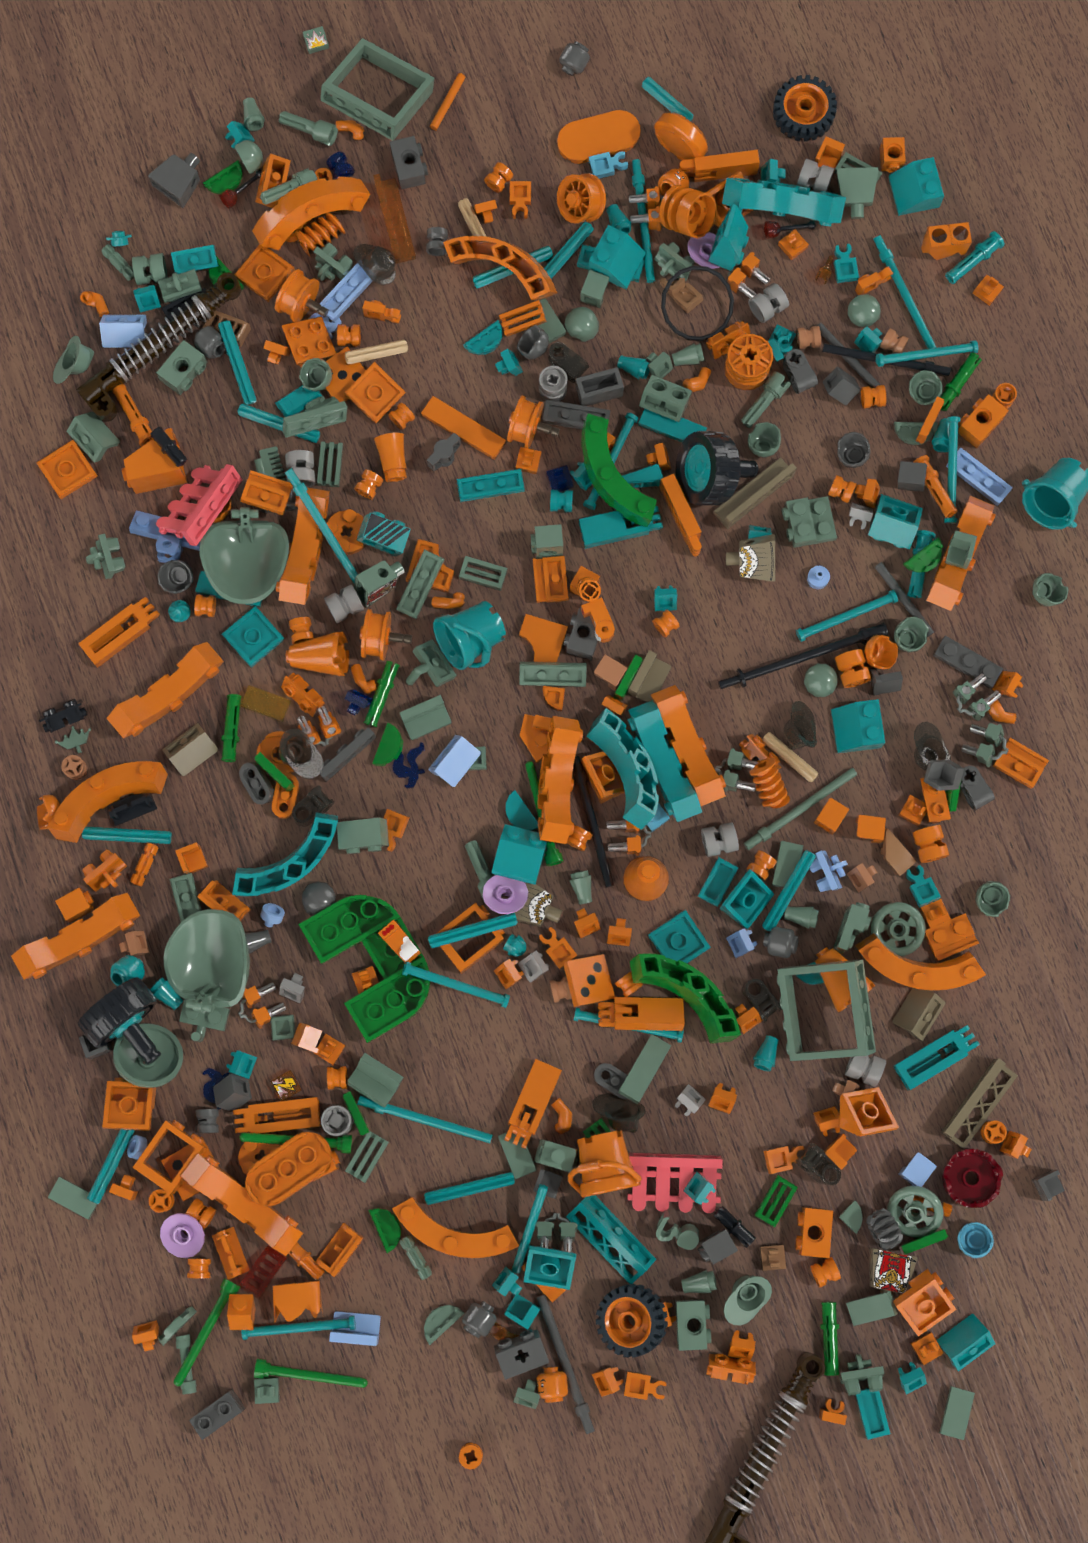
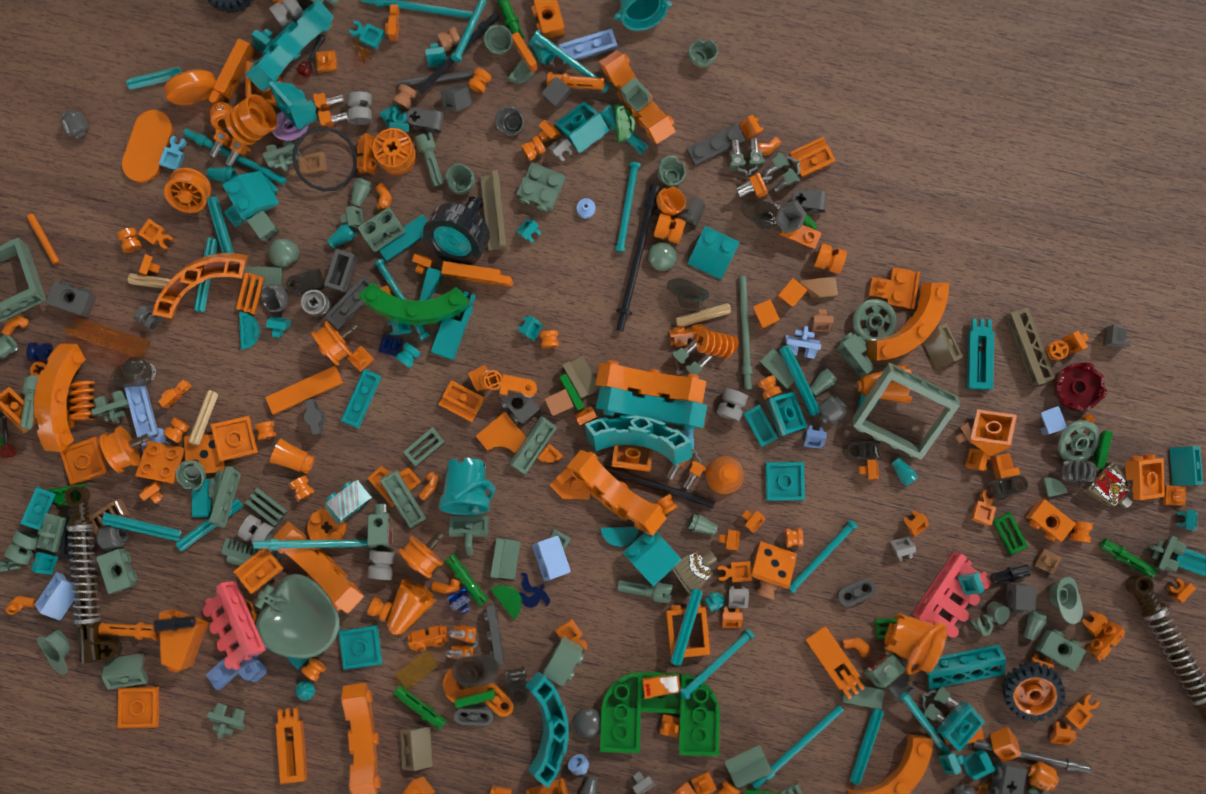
camera: 55 degrees left, 5 degrees up
(175, 576) = (277, 678): dark grey hair -> none
(502, 886) = (666, 586): lavender dish -> none
(547, 541) = (433, 385): sand green brick -> none
(553, 856) = (665, 531): green piece -> none
(560, 1327) = (1005, 744): none -> orange panel
(621, 1113) = (882, 604): clear smoke piece -> none
(644, 1069) = (862, 566): sand green tile -> none
(652, 1013) = (825, 534): orange hinge -> none
(693, 988) = (828, 493): green brick -> none
(755, 558) = (544, 243): dark tan torso -> none
(864, 310) = (410, 44): sand green hair -> none
(868, 1068) = (966, 409): light grey wheel -> none
(871, 1308) = (1126, 516): sand green tile -> none
(904, 599) = (637, 158): dark grey bar -> none
(913, 810) = (797, 254): orange tile -> none
(923, 889) = (858, 285): teal plate -> none
(953, 724) = (755, 185): none -> piece
(975, 1240) = (1124, 413): medium azure hair -> none
(992, 898) = (895, 241): sand green hair -> none

